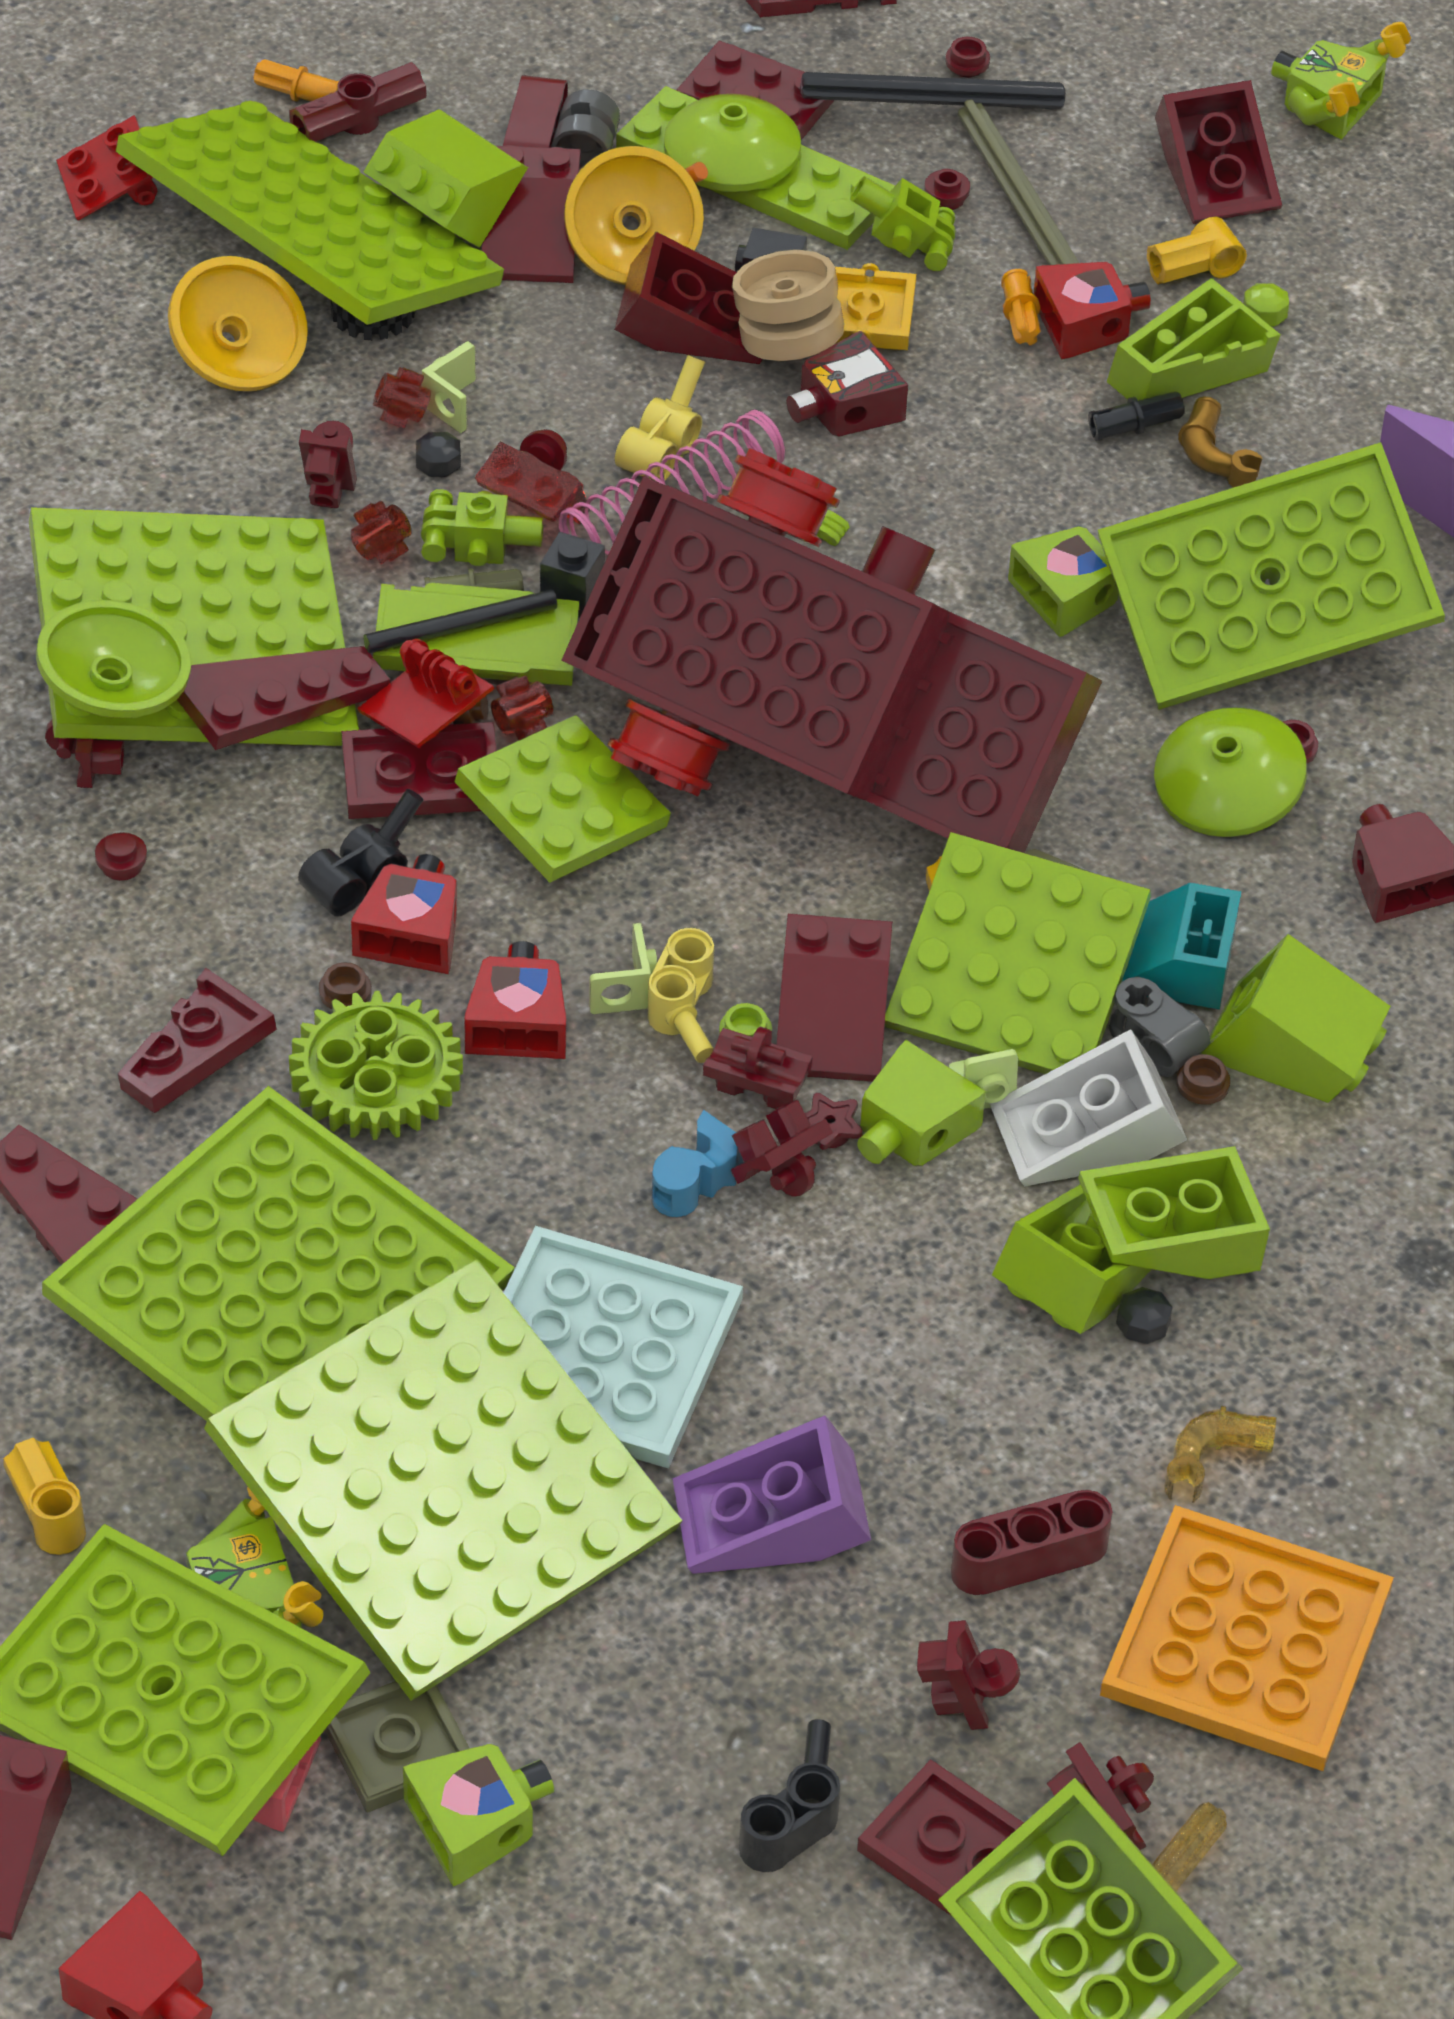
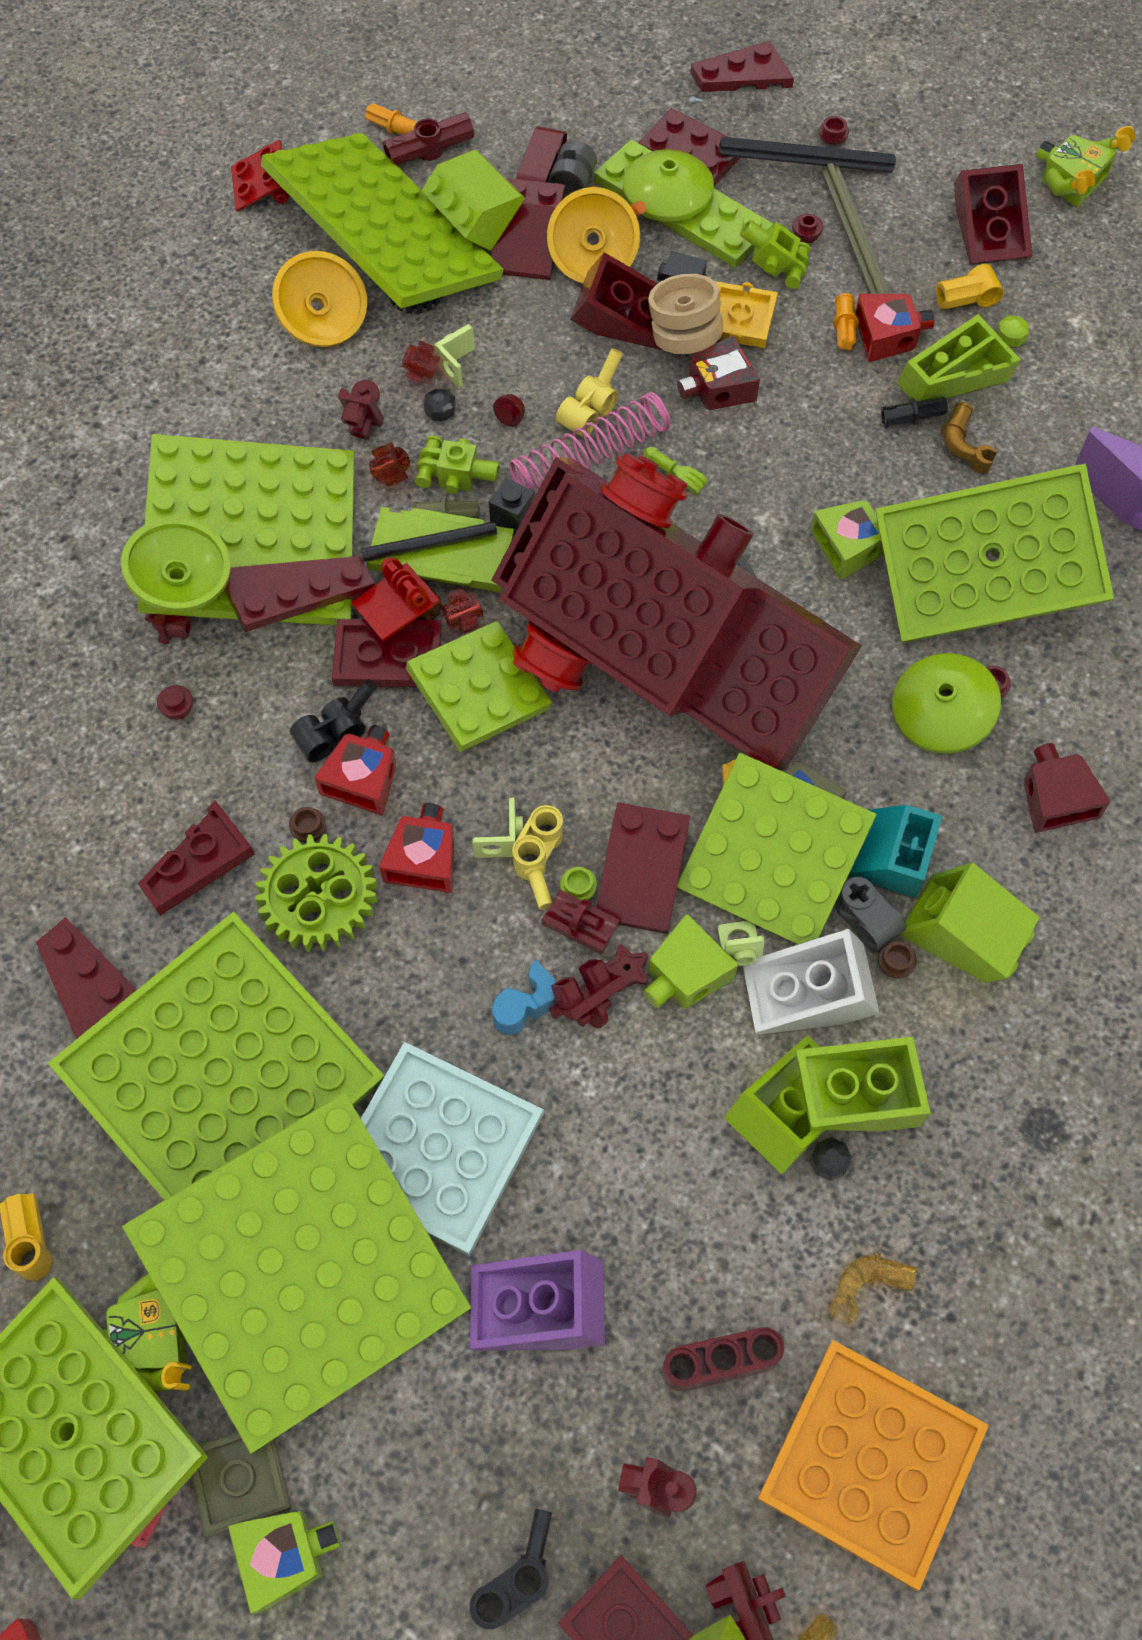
camera: 10 degrees right, 15 degrees up
(530, 483) = (494, 437): clear red bracket -> none

